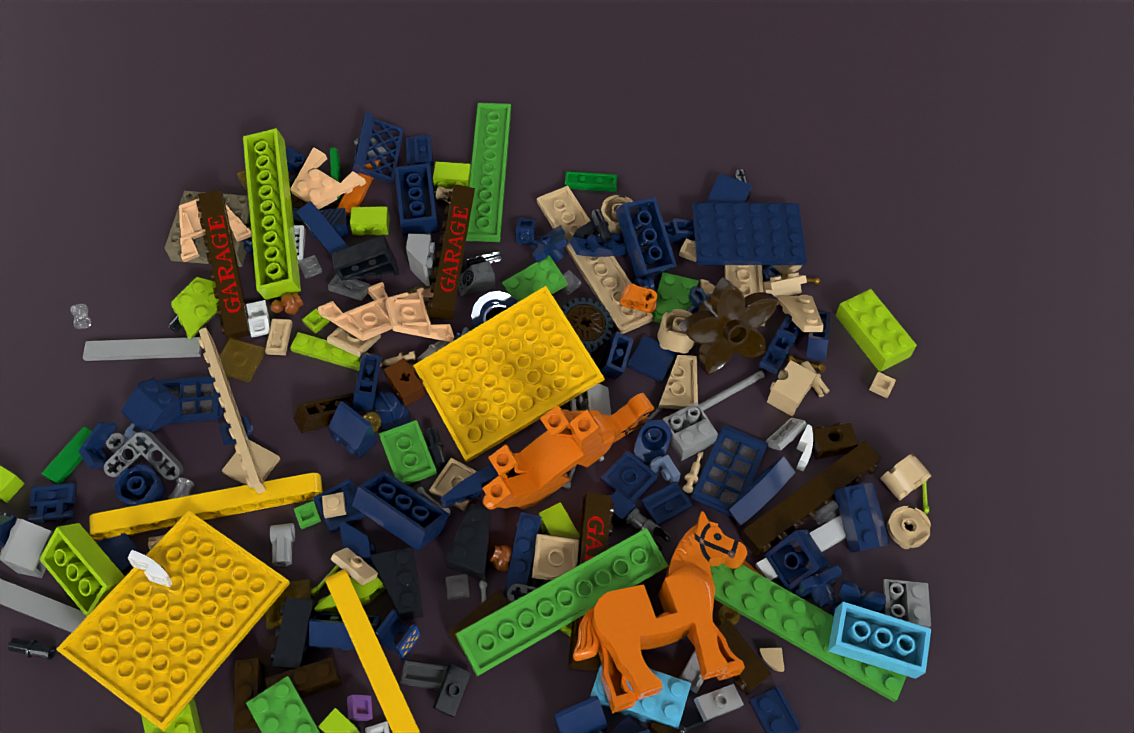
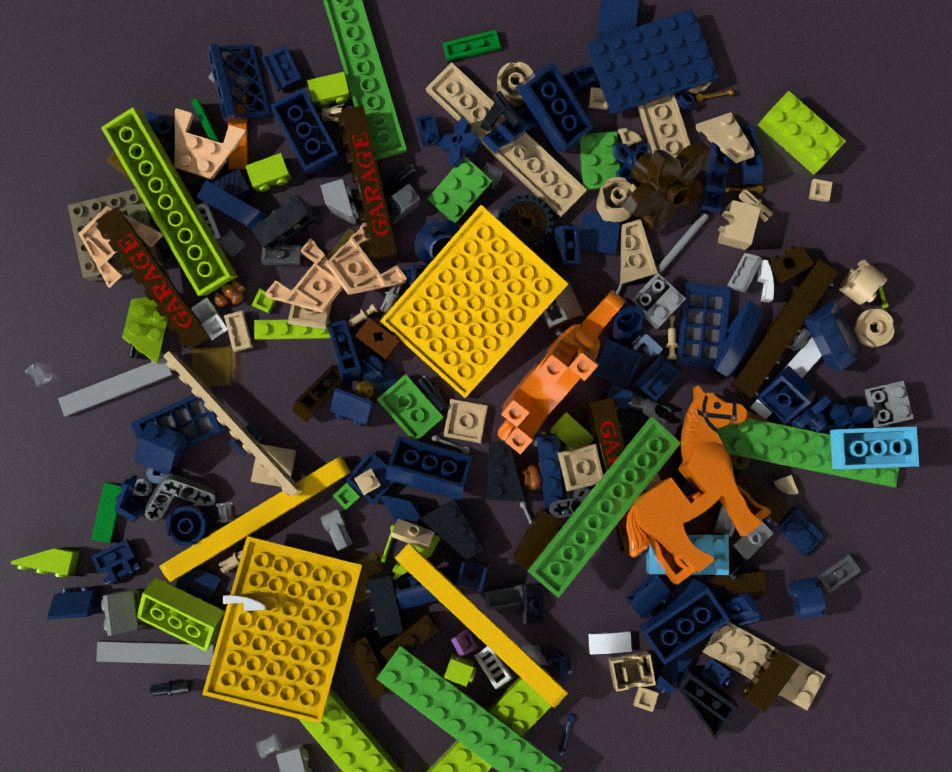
camera: 10 degrees left, 25 degrees up
(457, 587) = (503, 515): clear plate -> none
(469, 487) = (482, 423): dark blue slope -> none
(637, 297) = (566, 176): orange piece -> none
(645, 283) = (567, 156): dark blue wheel -> none
(785, 286) = (702, 111): tan bracket -> none

